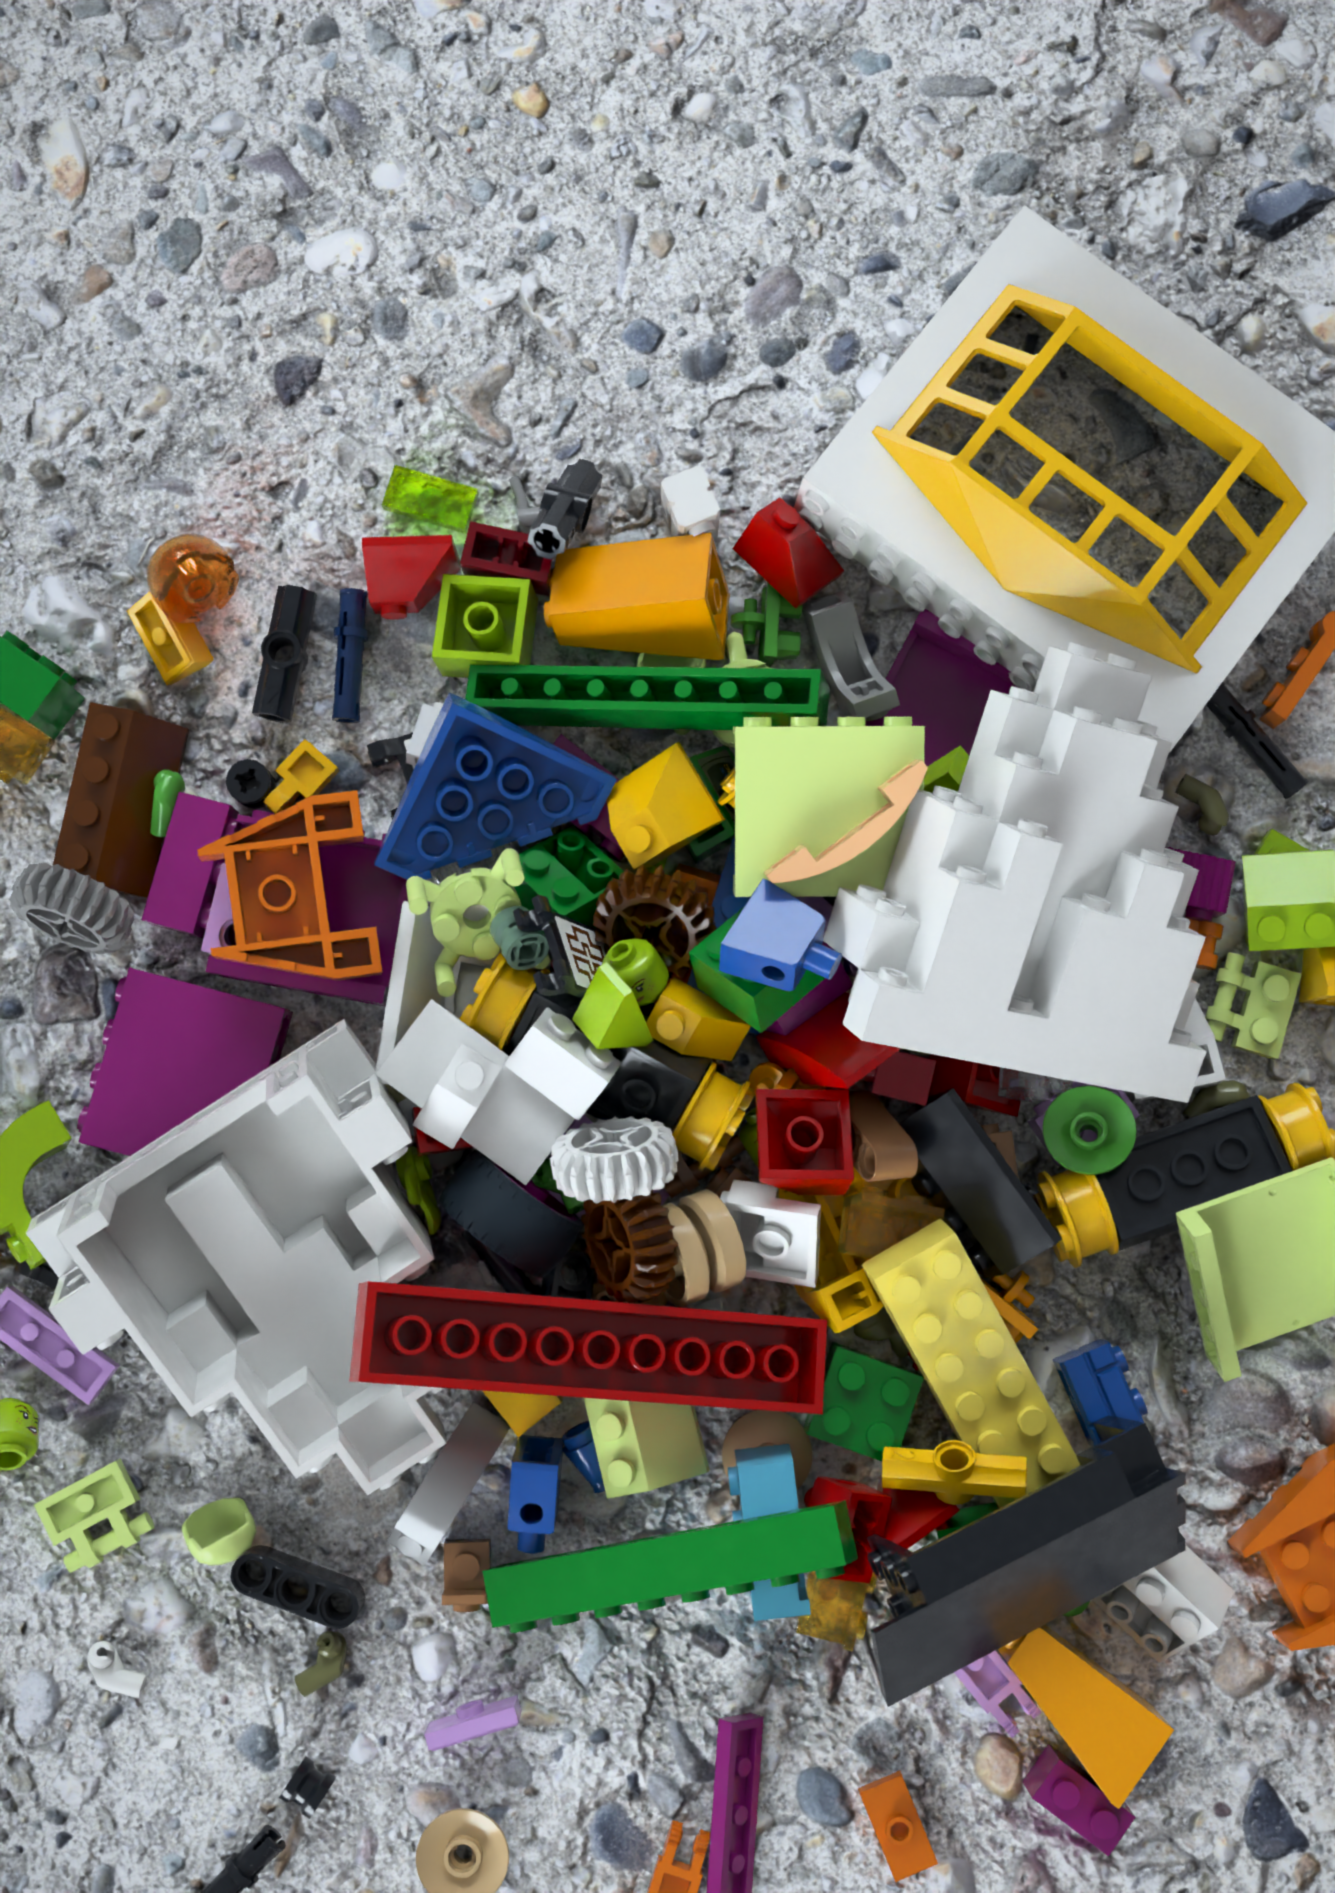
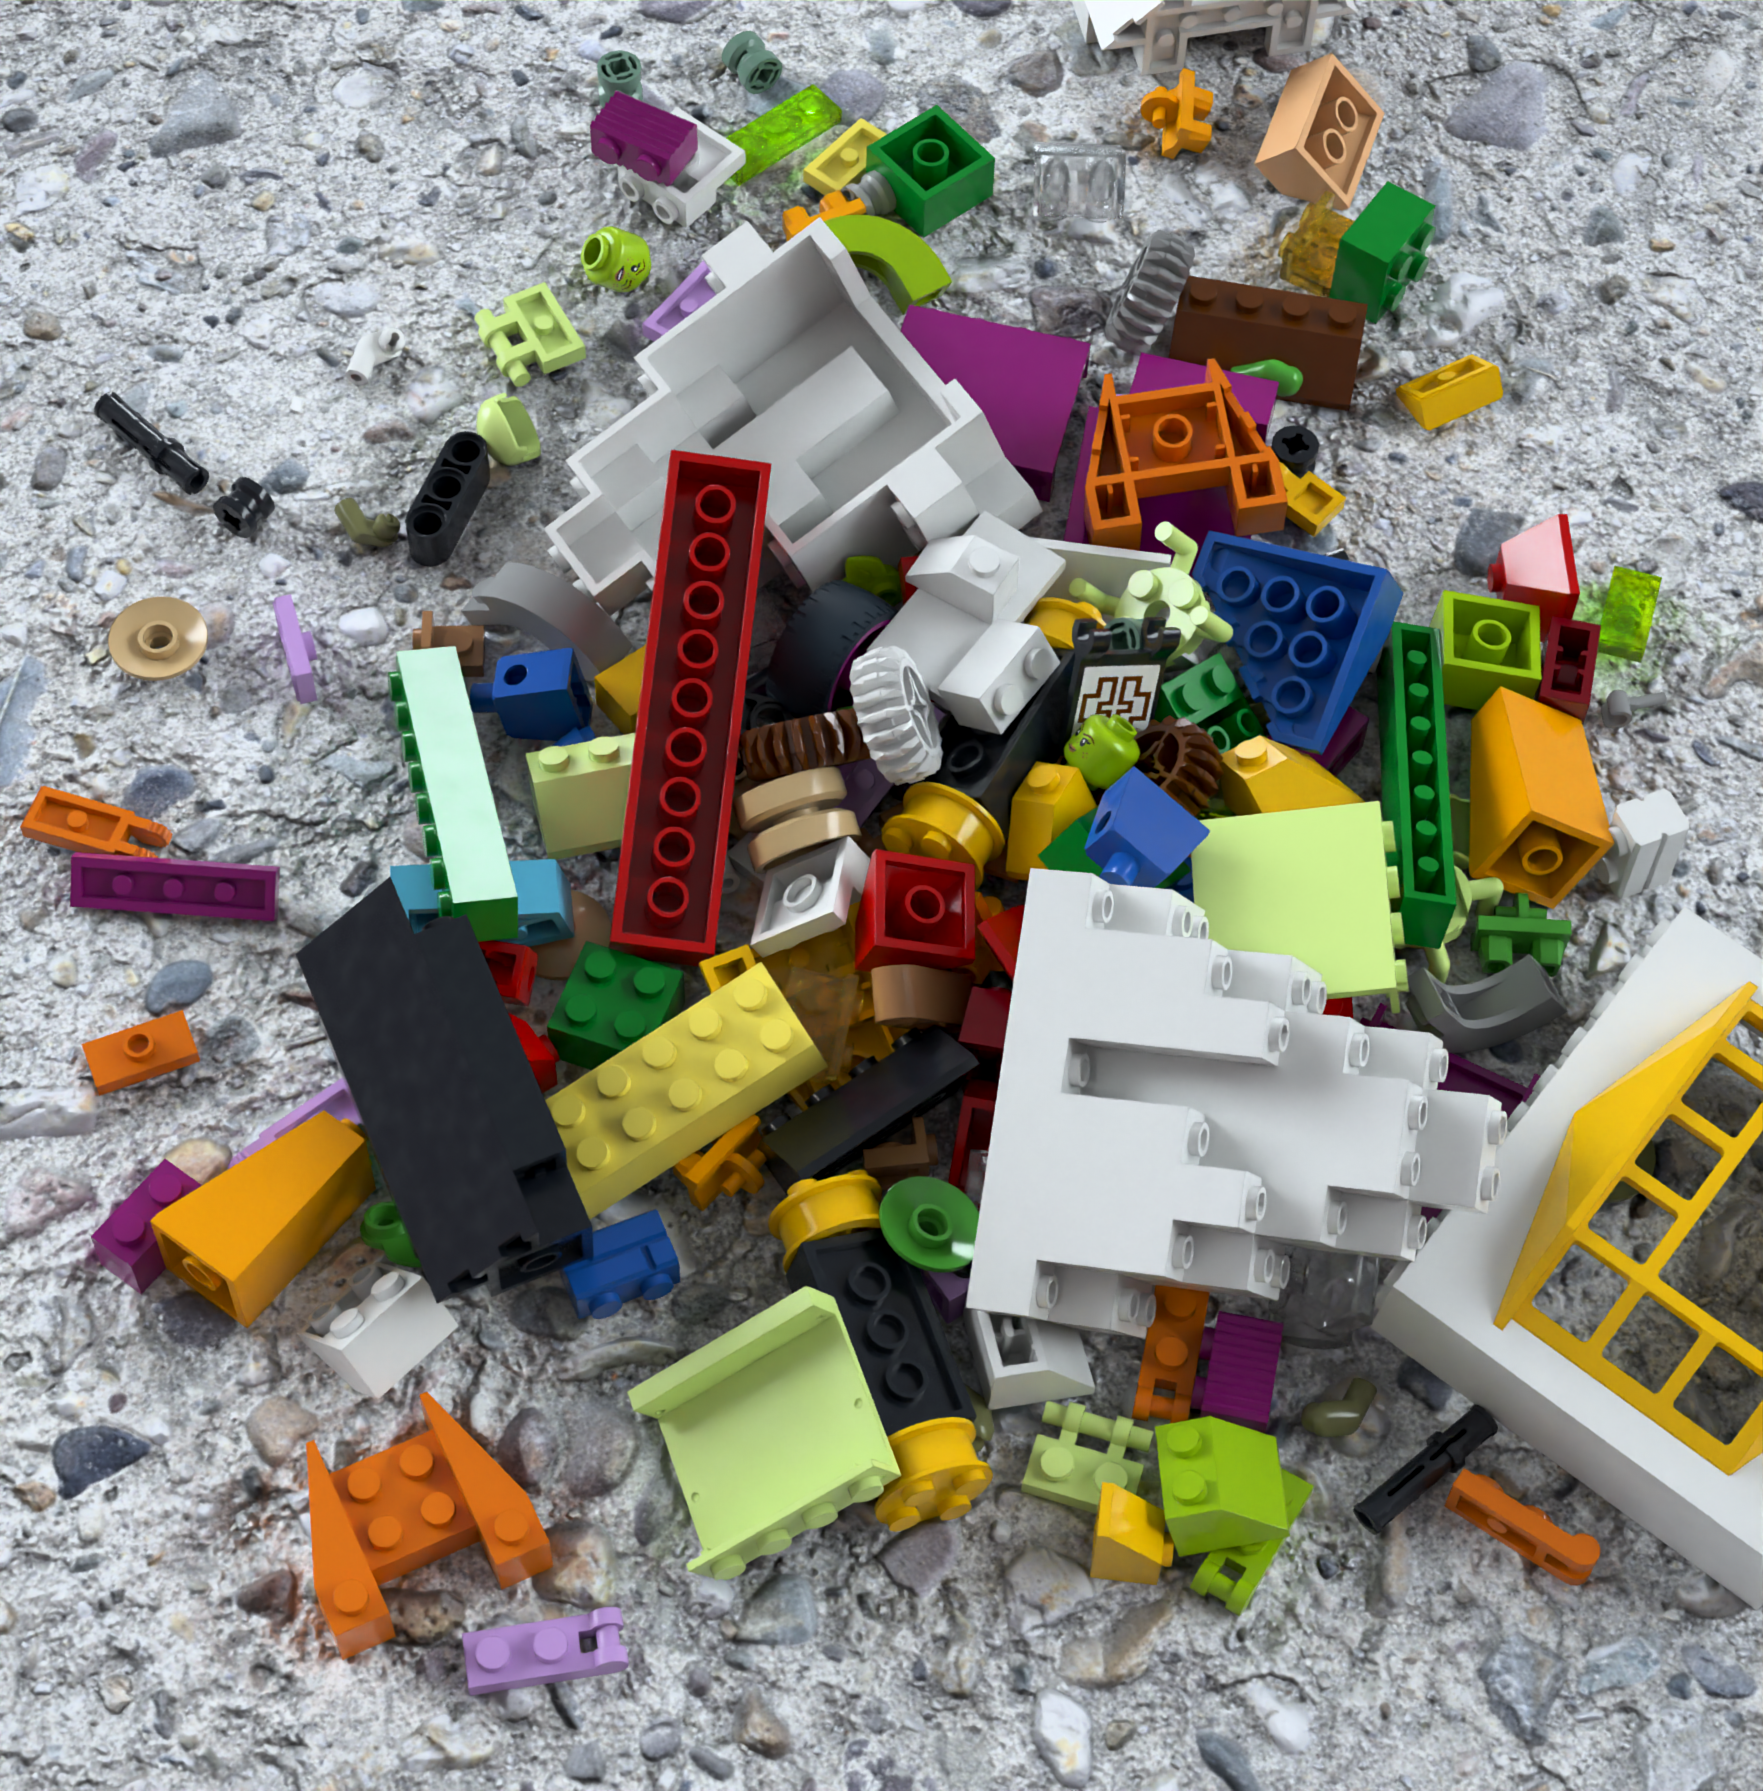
camera: 90 degrees right, 25 degrees down
(190, 577) = (1511, 393): clear orange cylinder -> none
(288, 627) = (1438, 480): black piece -> none
(350, 647) = (1437, 541): dark blue pin -> none
(565, 509) = (1627, 716): black piece -> none
(611, 1013) = (1052, 712): lime slope -> none
(787, 553) = (1600, 937): red slope -> none
(897, 791) = (1267, 926): light nougat slope -> none
(954, 1472) = (546, 1040): yellow piece -> none

